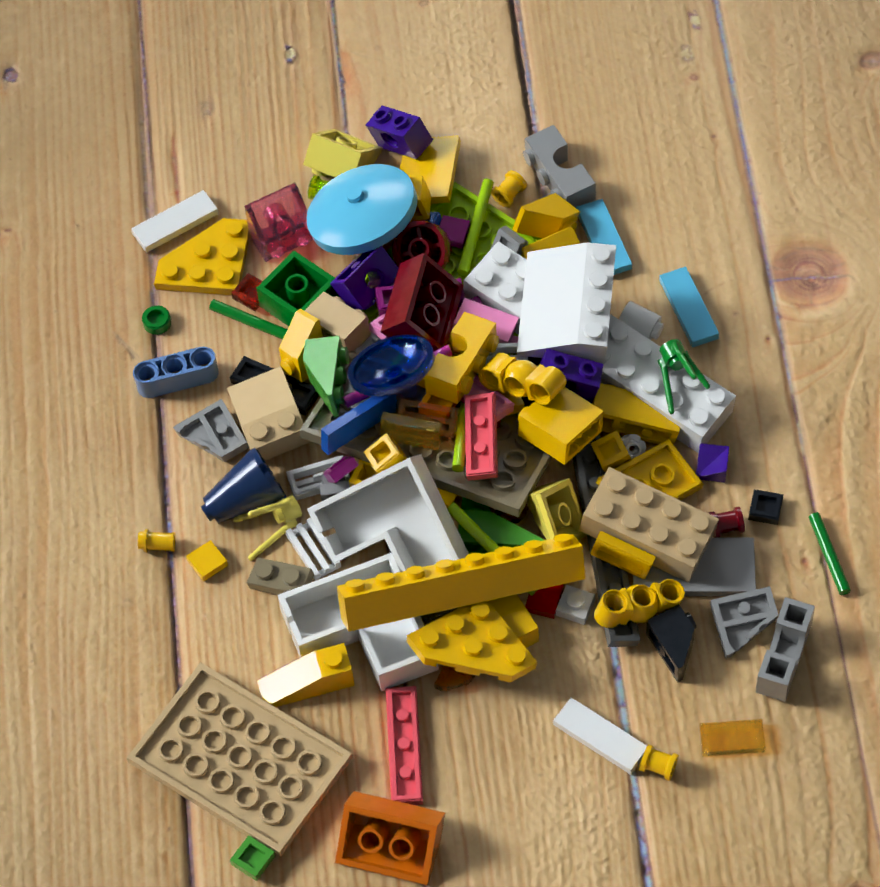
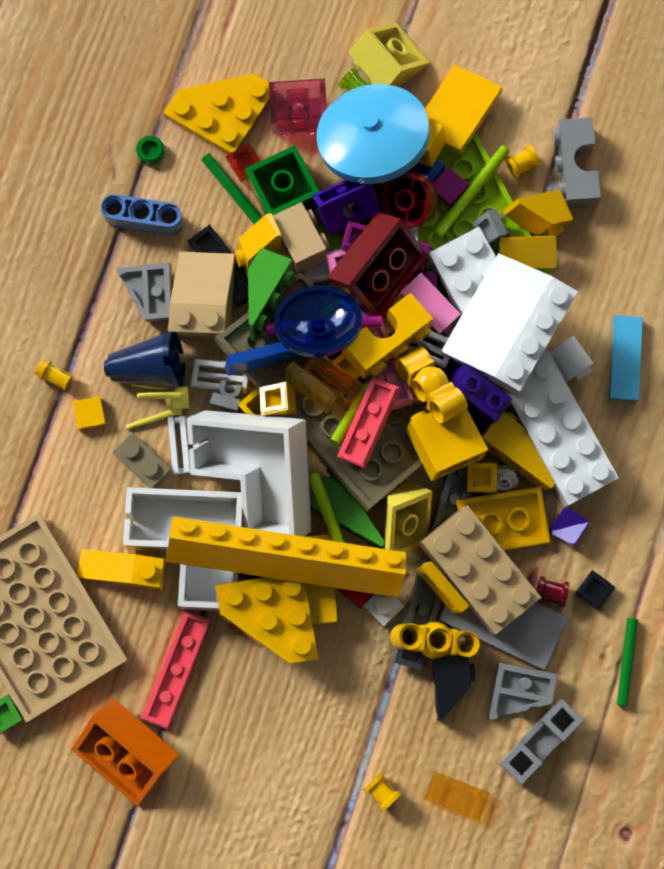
camera: 20 degrees right, 20 degrees up
(174, 221) = (210, 55): white tile -> none
(340, 469) = (236, 388): magenta tile -> none
(399, 132) = (448, 59): dark purple brick -> none
(600, 735) = (345, 740): white tile -> none
(601, 229) = (584, 250): medium azure tile -> none
(676, 358) = (581, 422): green plant -> none

